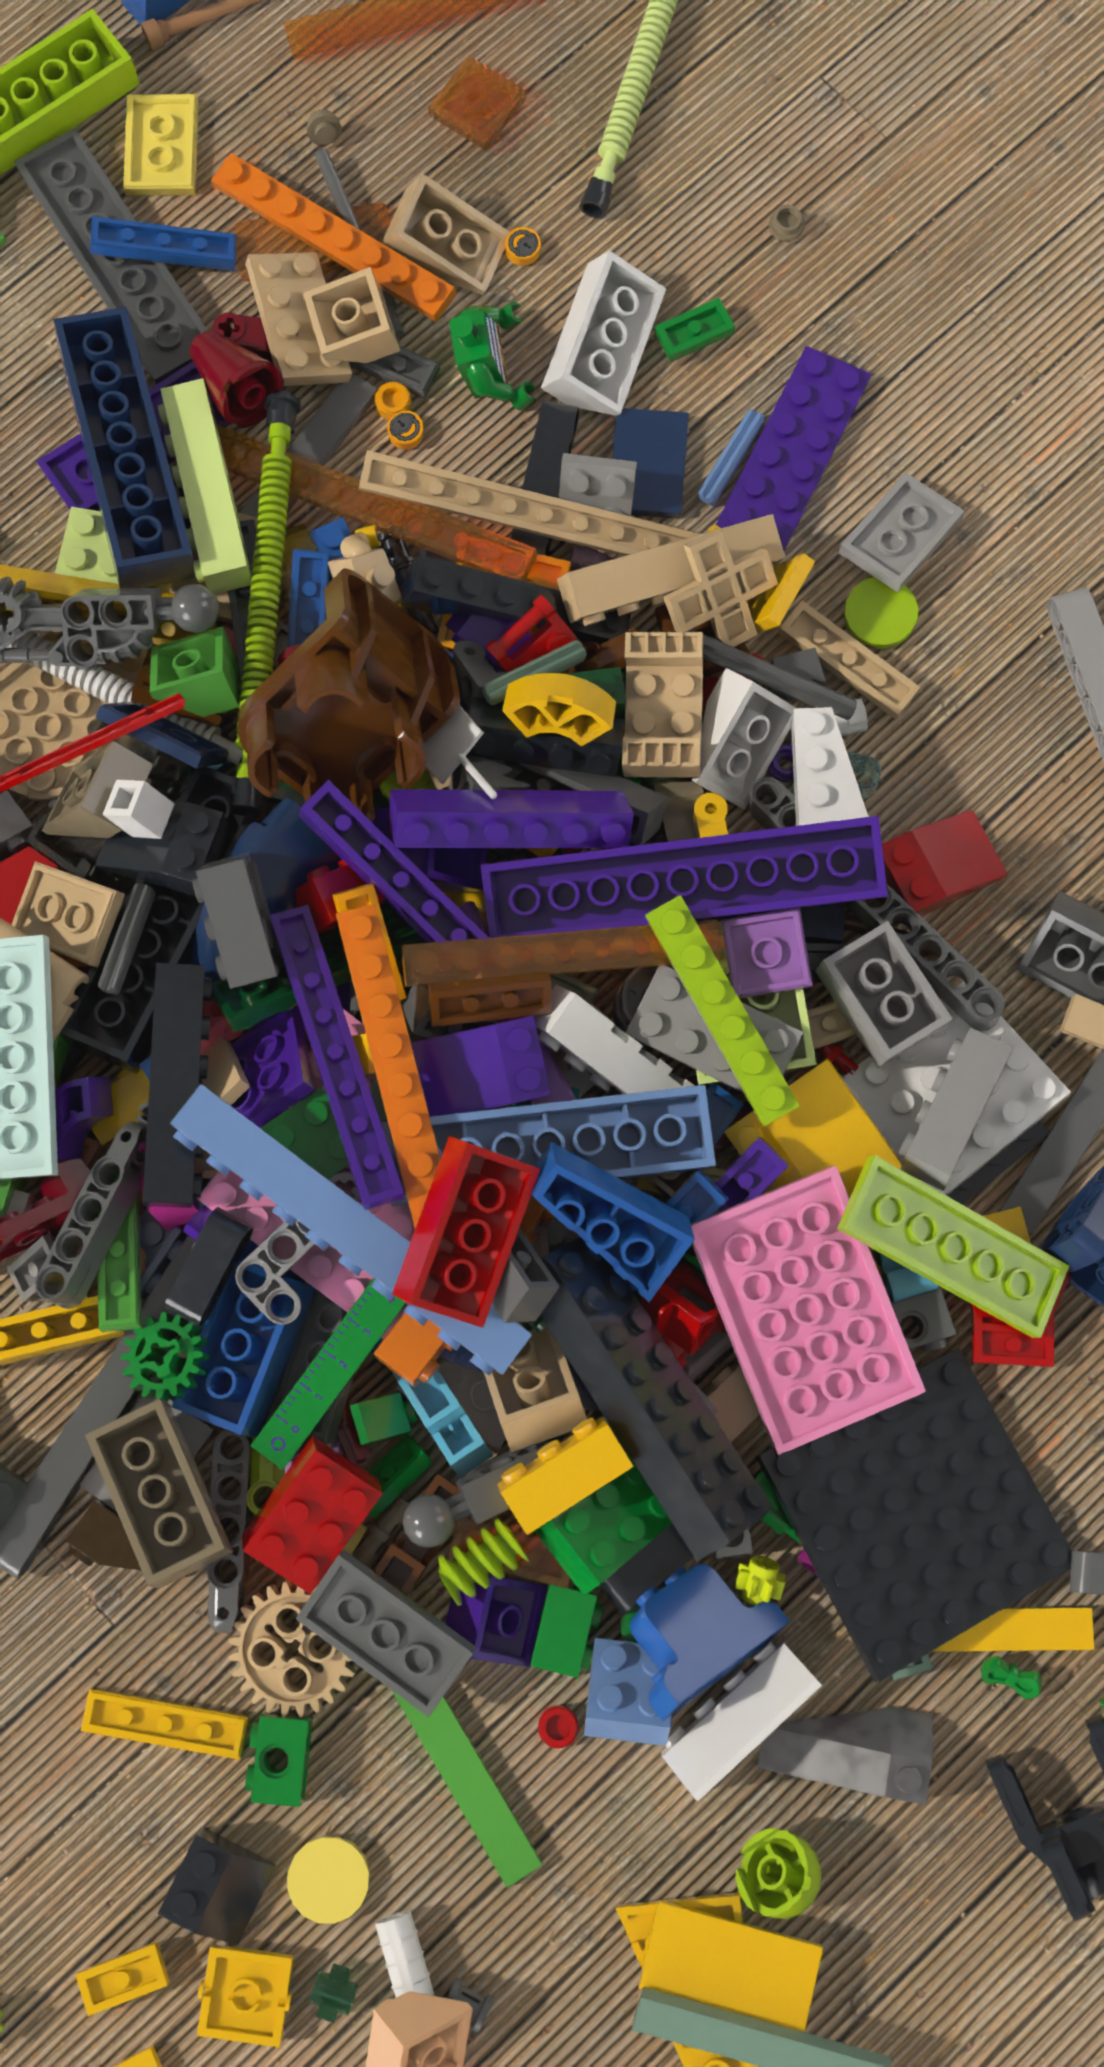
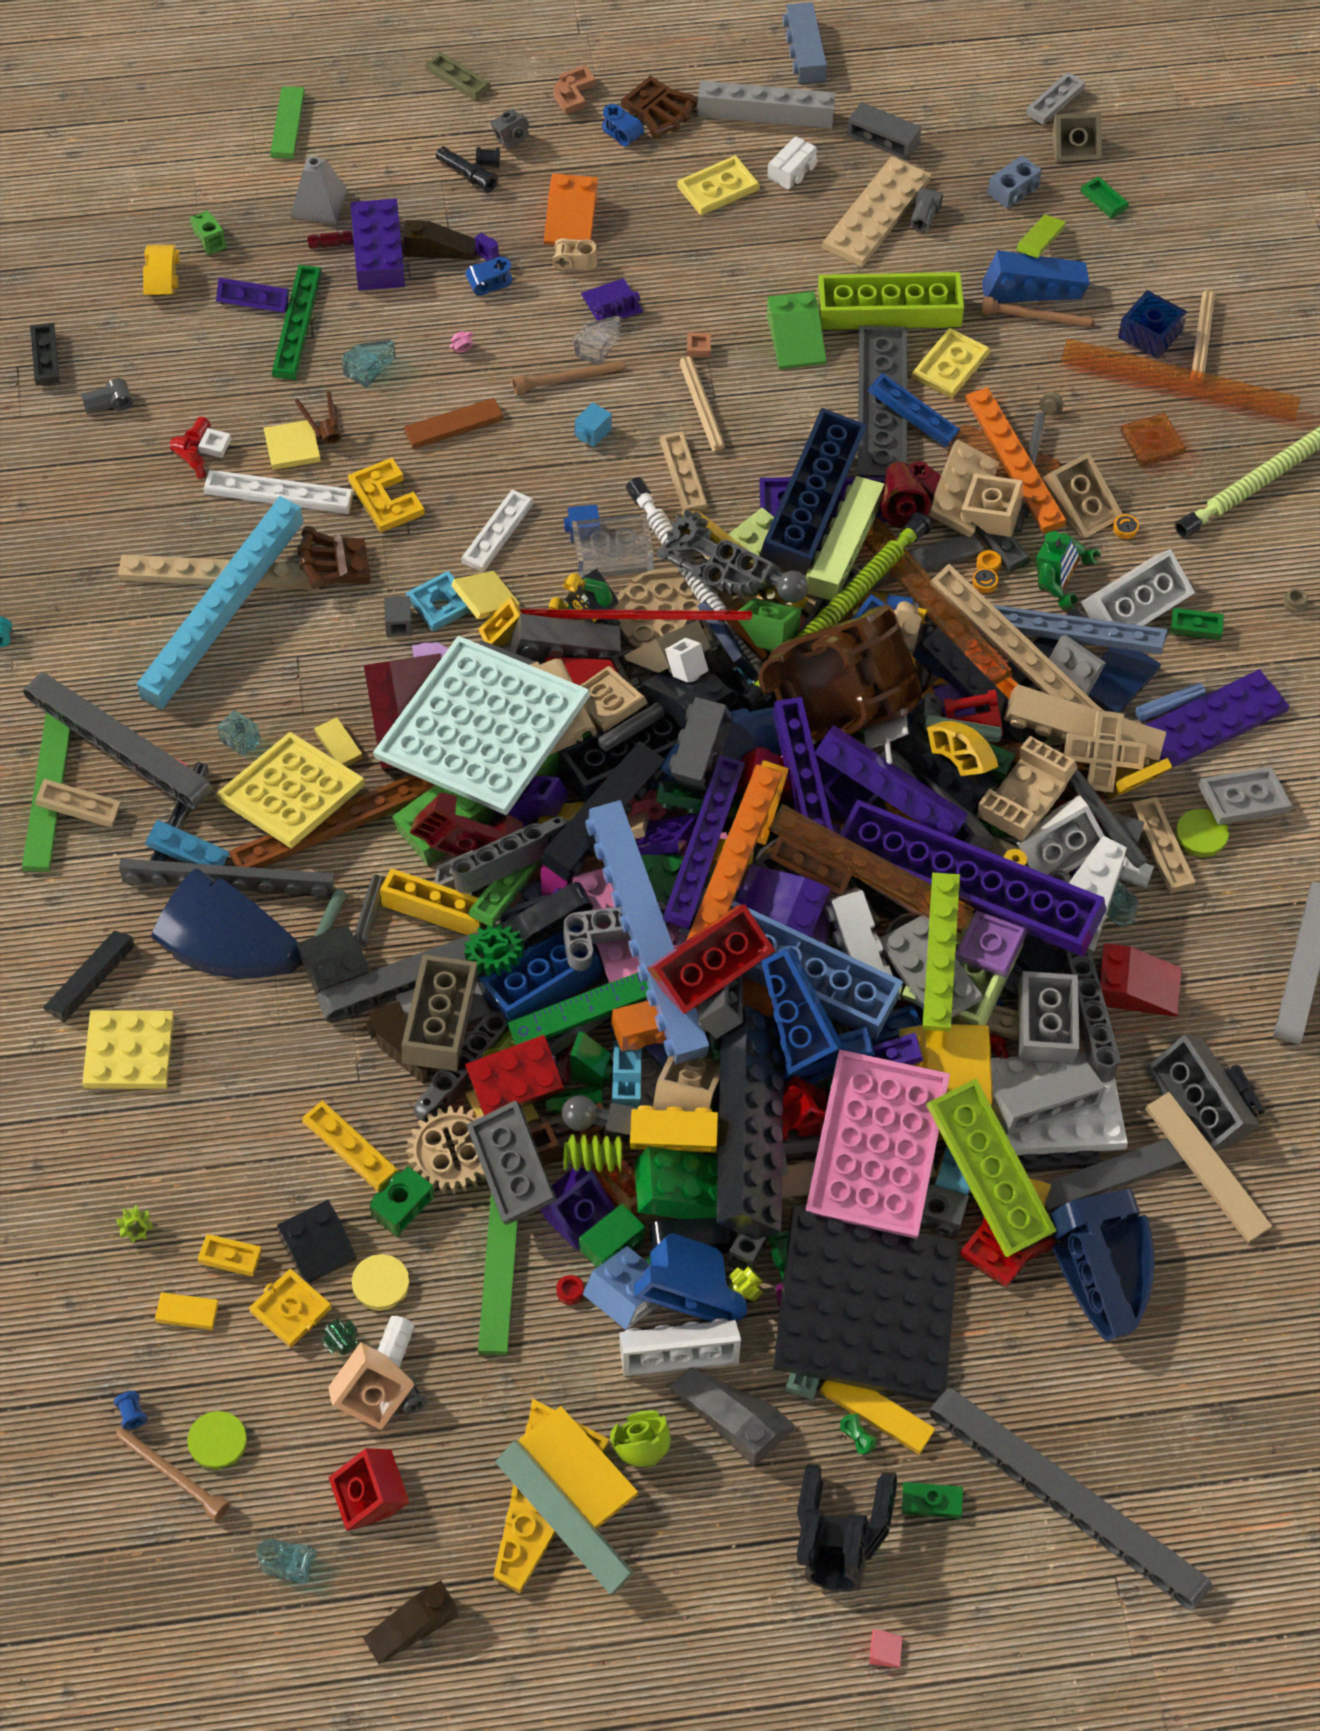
camera: 30 degrees right, 20 degrees down
(575, 433) = (1084, 630): none -> sand blue plate

